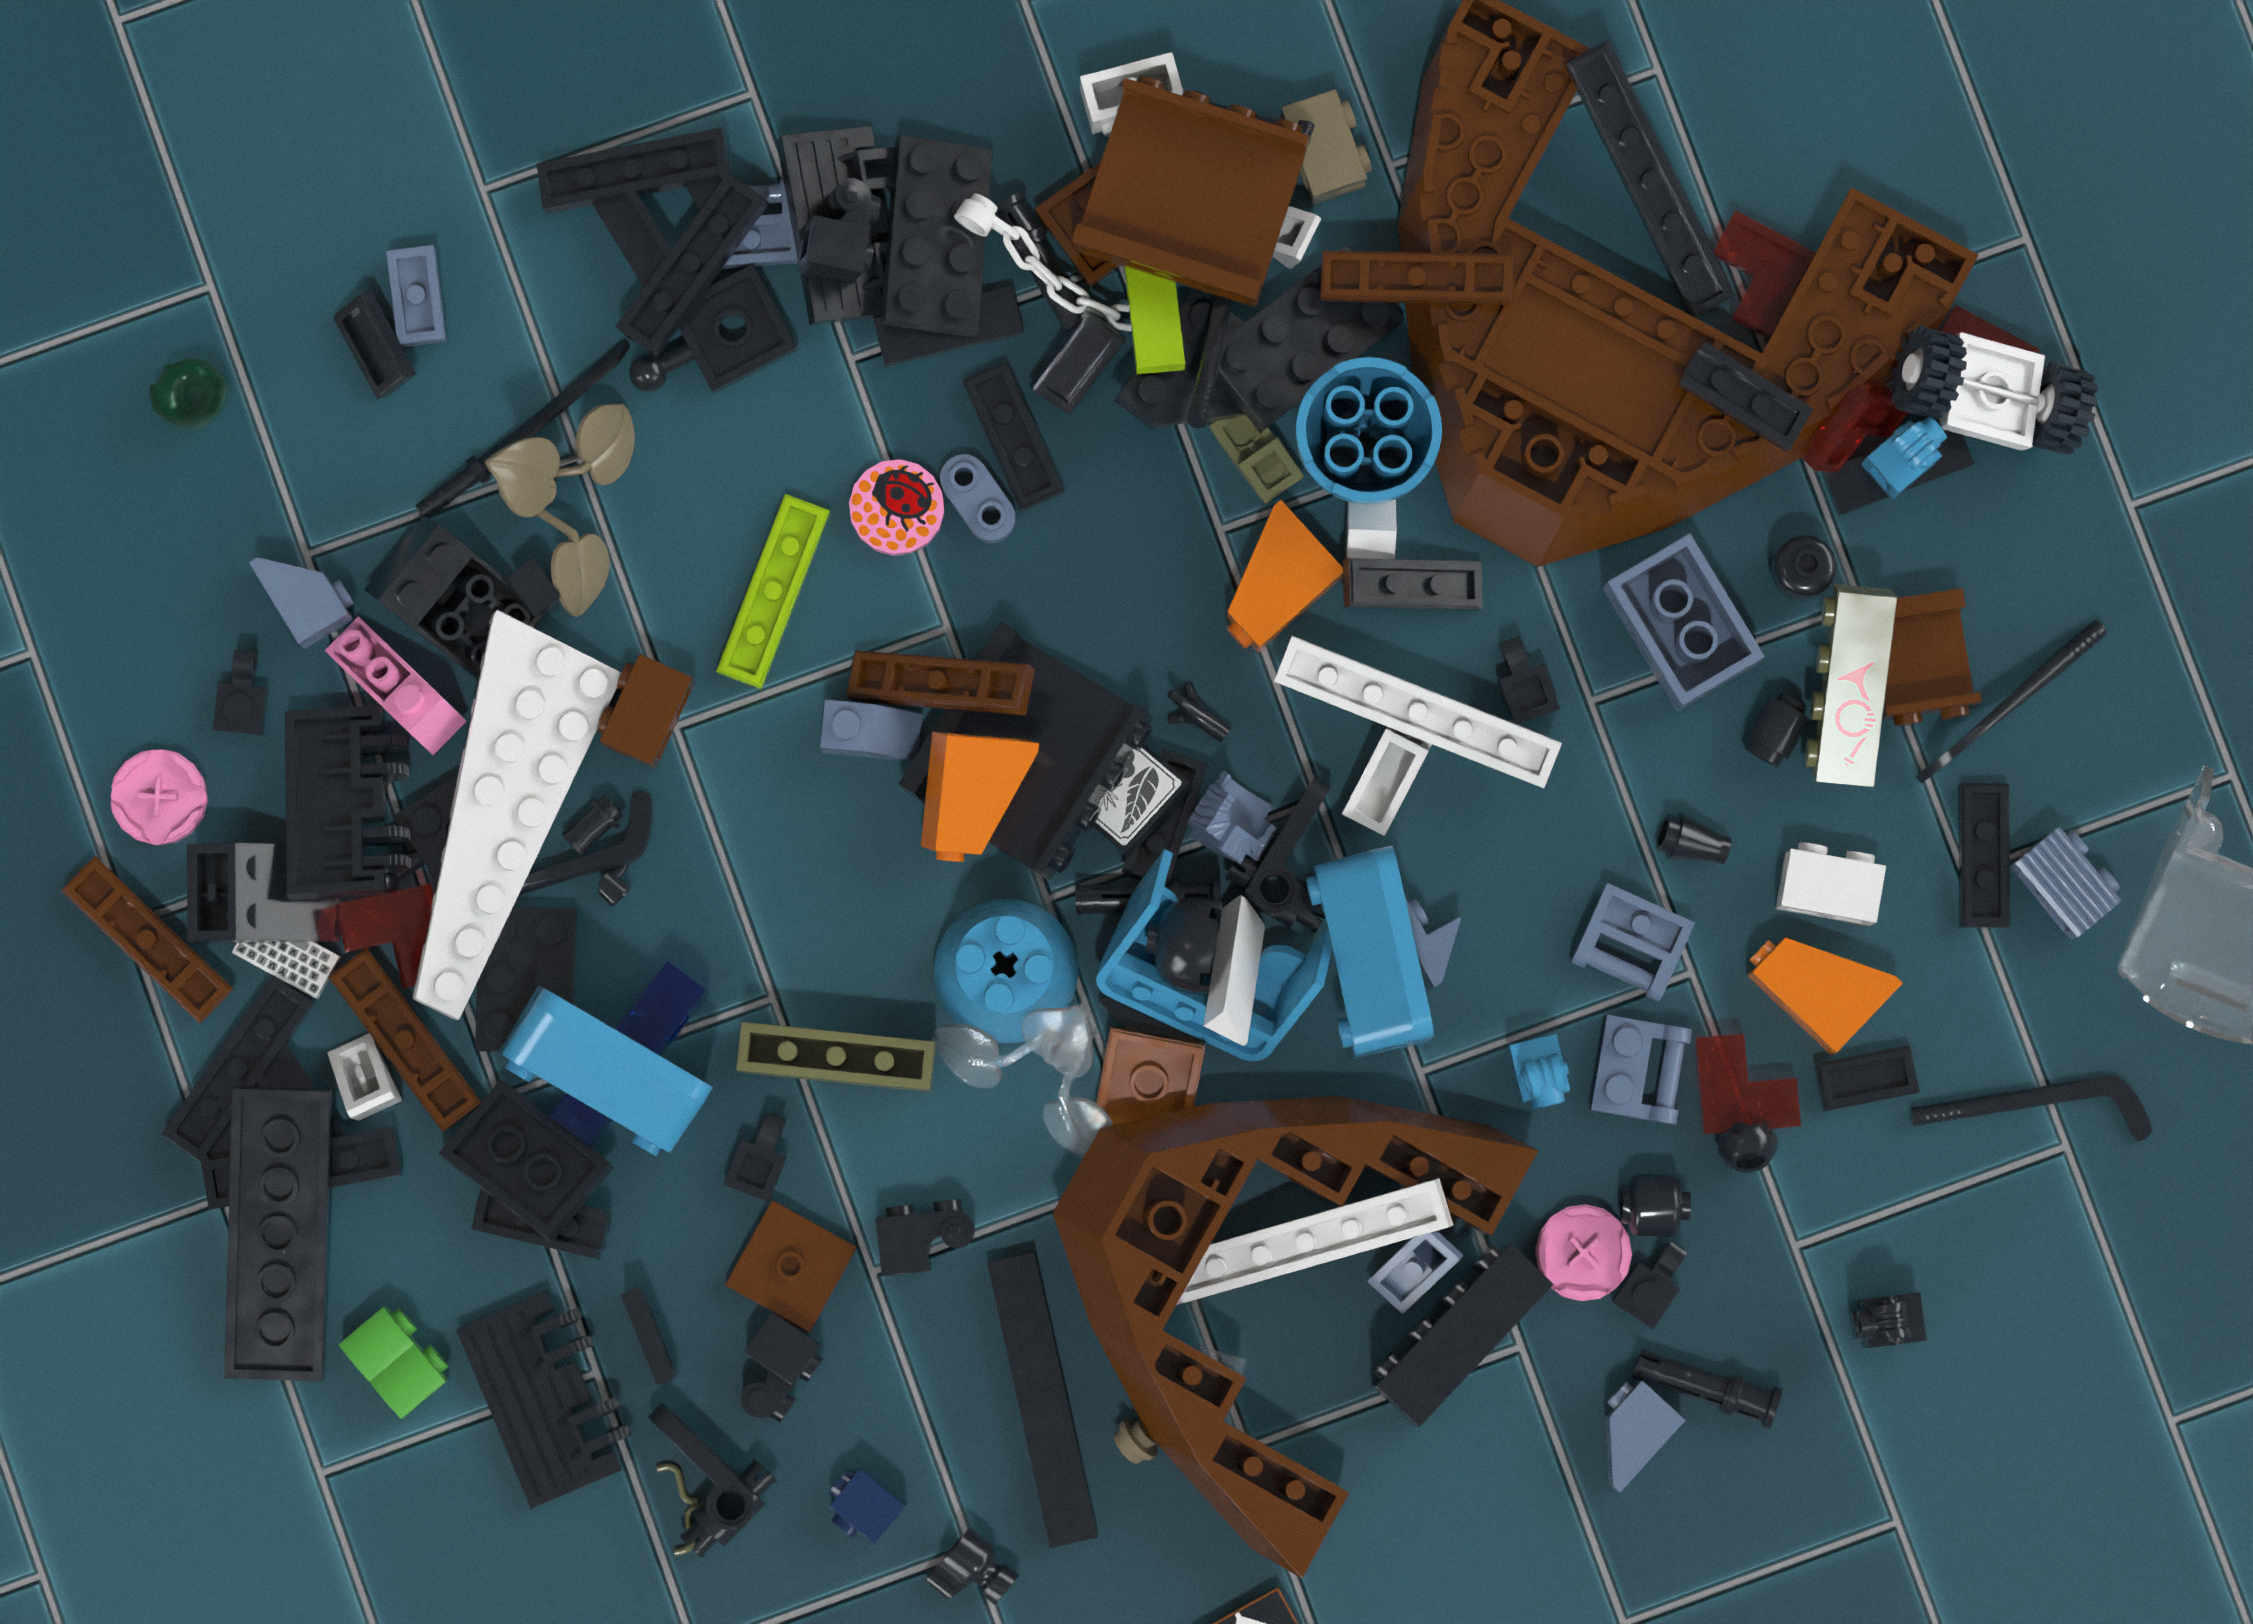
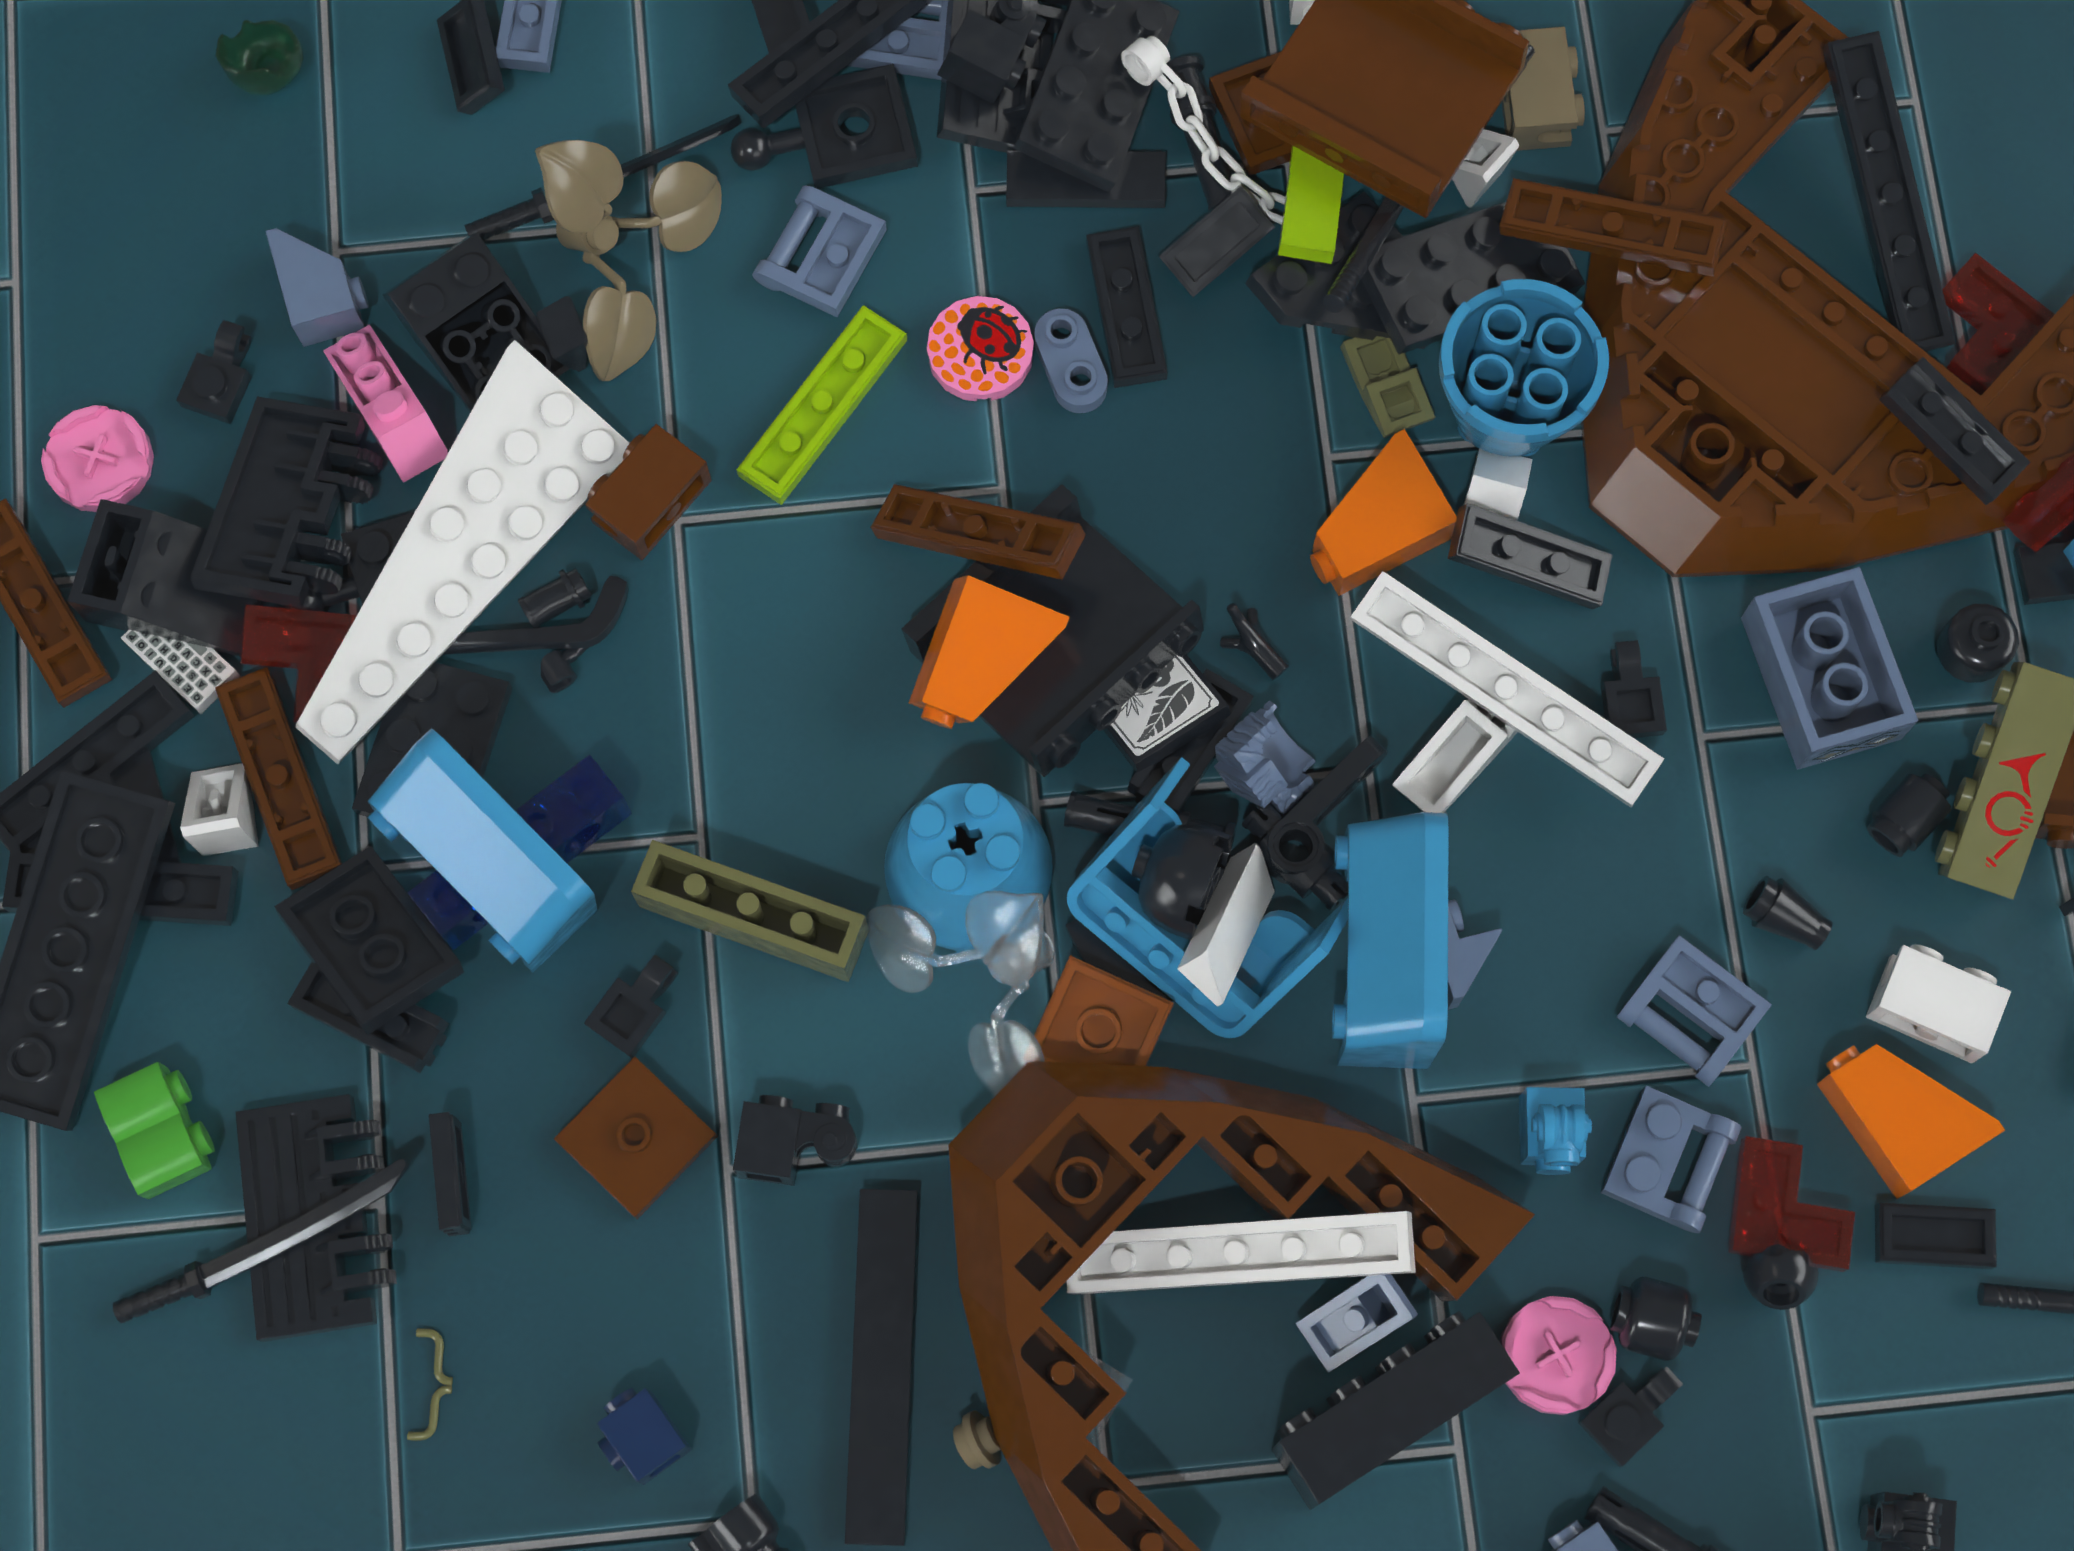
camera: 20 degrees right, 10 degrees down
(469, 1472) = (200, 1278): none -> black sword
(710, 1522) = (457, 1406): black piece -> none
(749, 454) = (834, 258): none -> sand blue plate
(786, 1356) = (600, 1241): black brick -> none
(870, 731) = (883, 568): sand blue slope -> none

